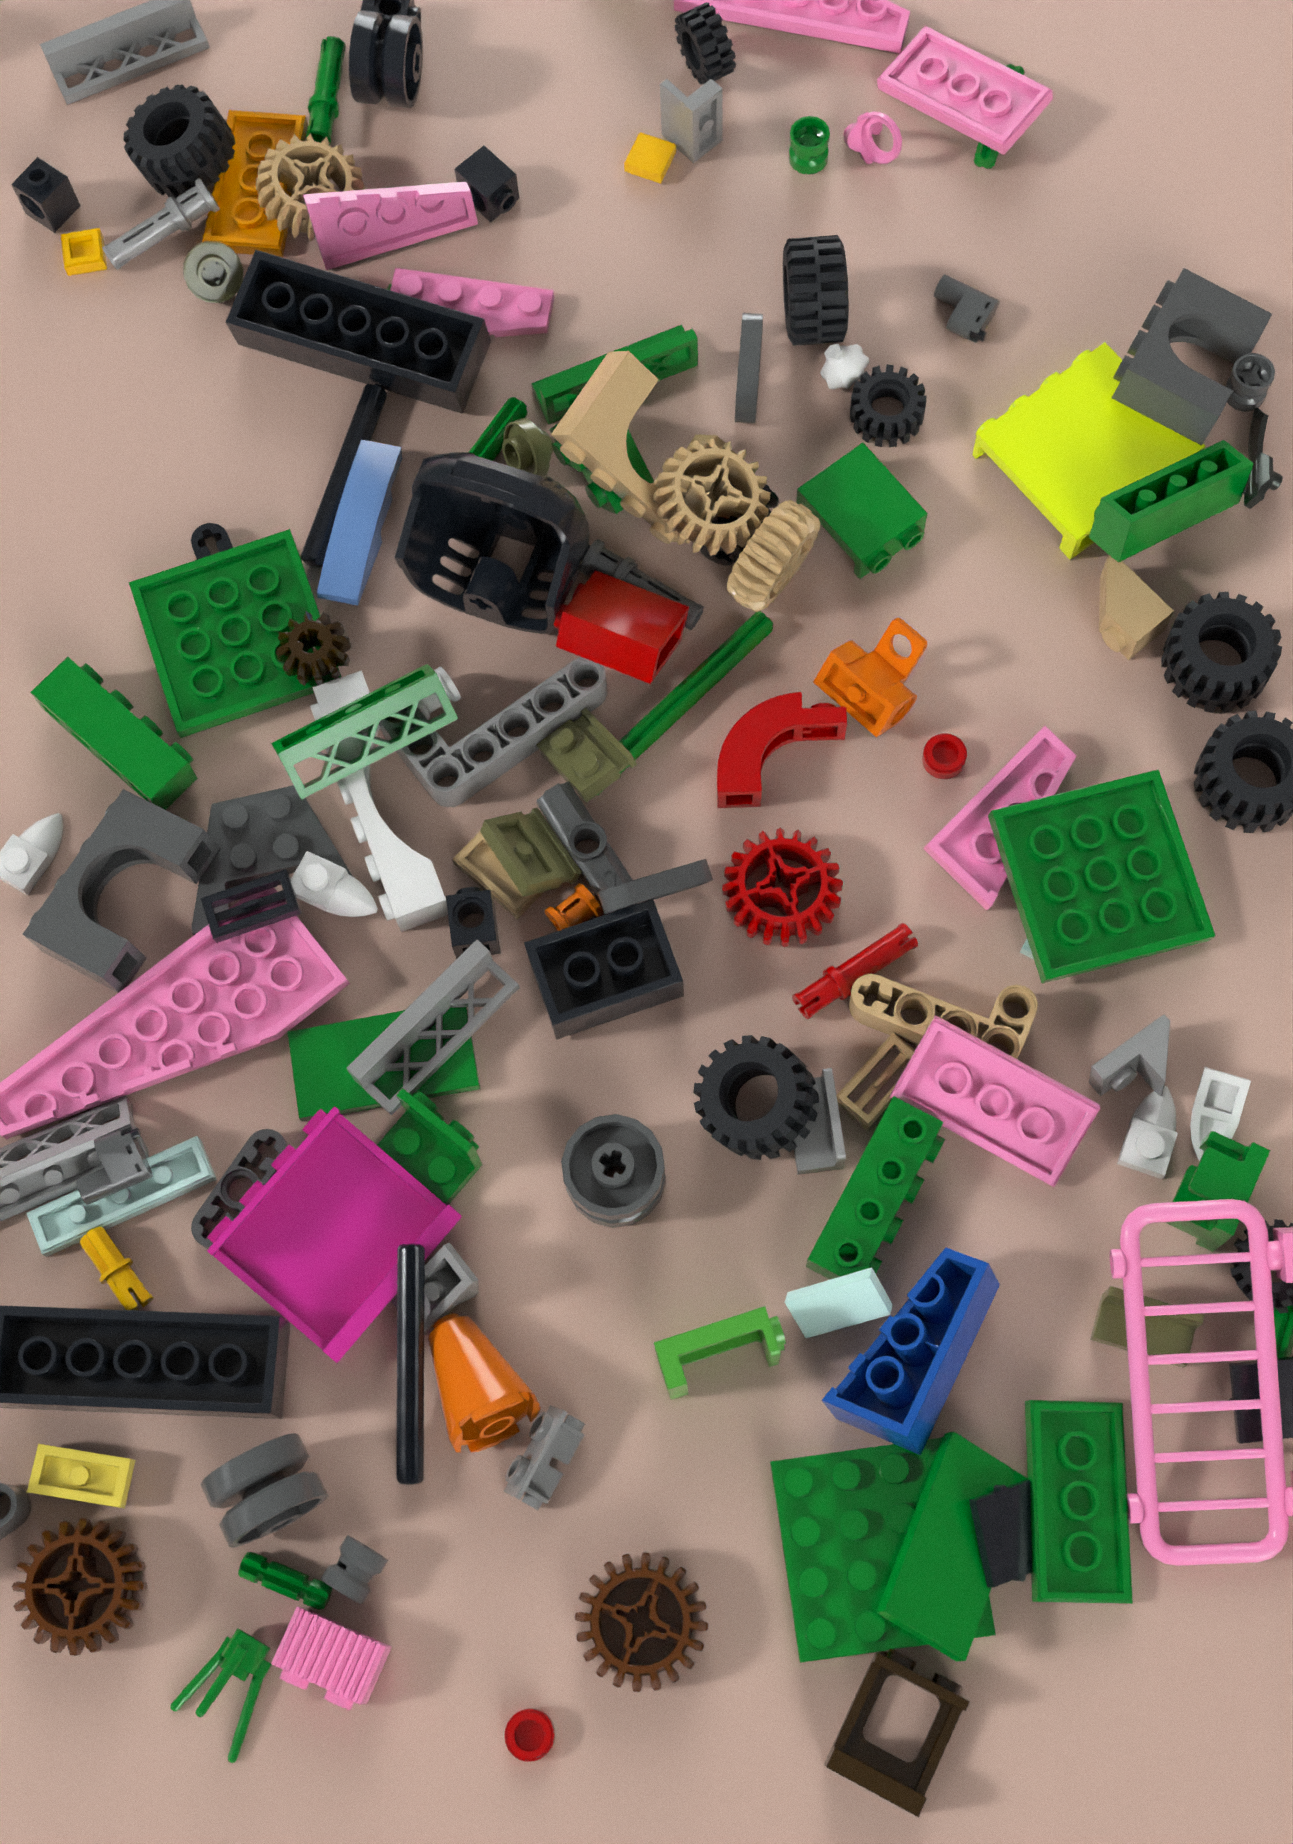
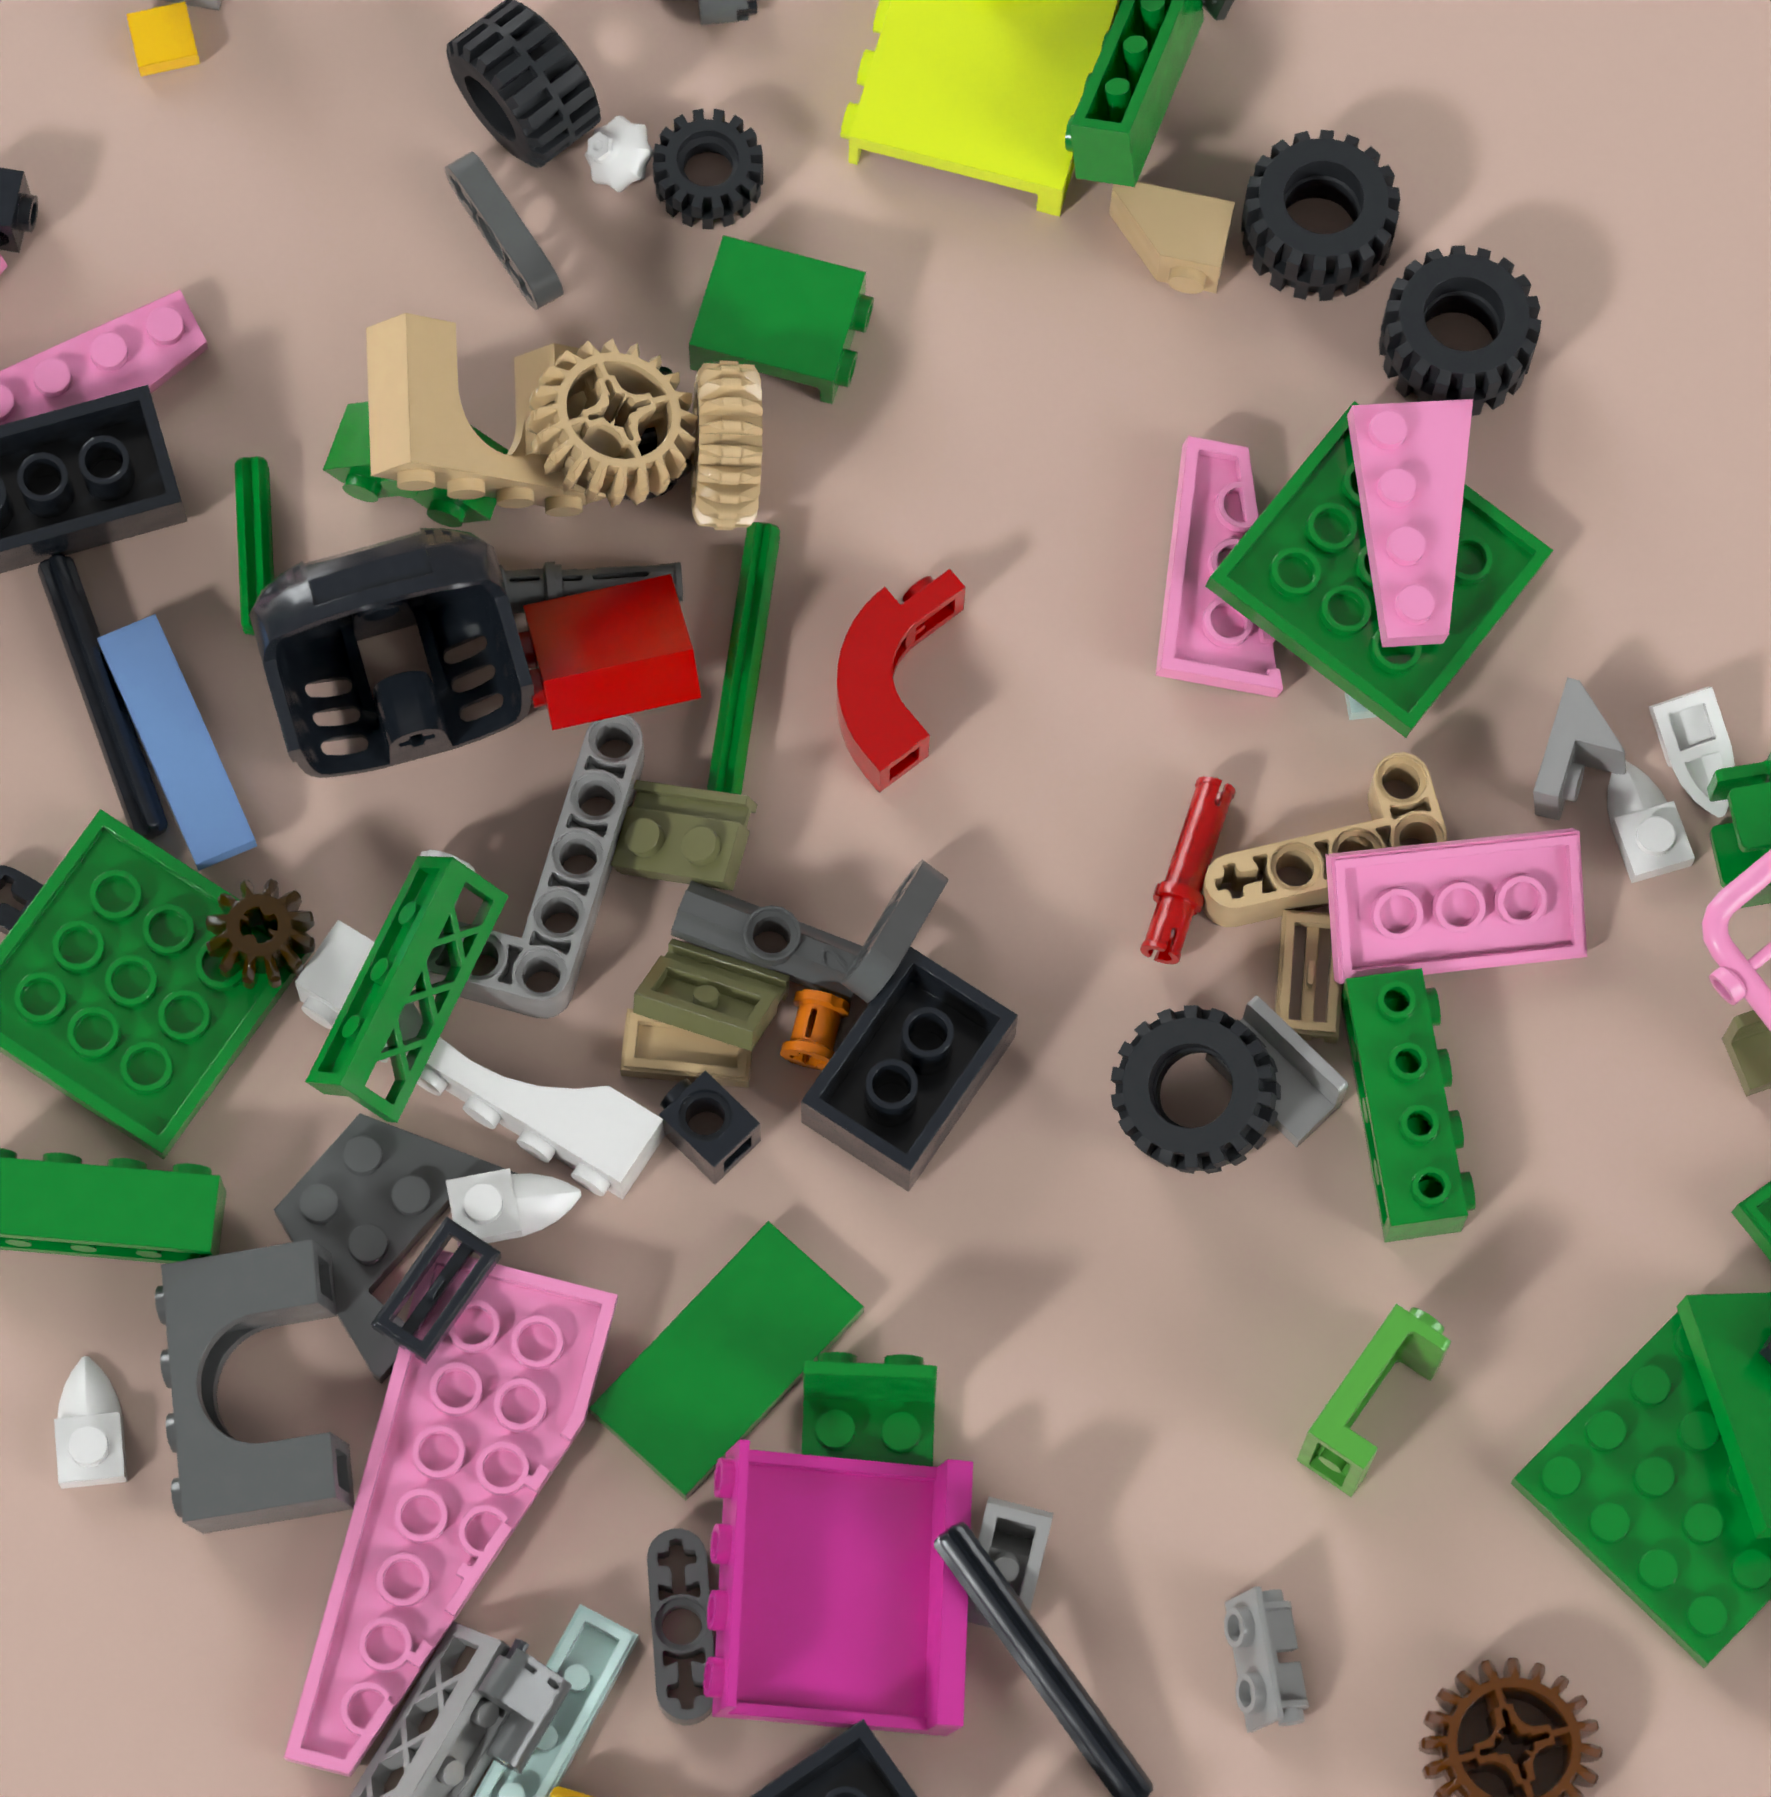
camera: 45 degrees left, 0 degrees up
(424, 1013) = (740, 1277): light grey fence -> none
(477, 1386) = (1134, 1633): orange cone -> none
(527, 447) = (316, 513): olive plate -> none
(607, 1144) = (1107, 1250): dark grey wheel -> none
(661, 354) = (336, 345): green fence -> none
(765, 894) = (1052, 847): red gear -> none
(838, 1303) = (1459, 1250): light aqua tile -> none
(873, 682) = (950, 517): orange piece -> none
(917, 1357) = (1588, 1260): blue wedge -> none
(944, 756) = (1095, 550): red tile -> none
(1147, 848) = (1411, 502): none -> bright pink wing

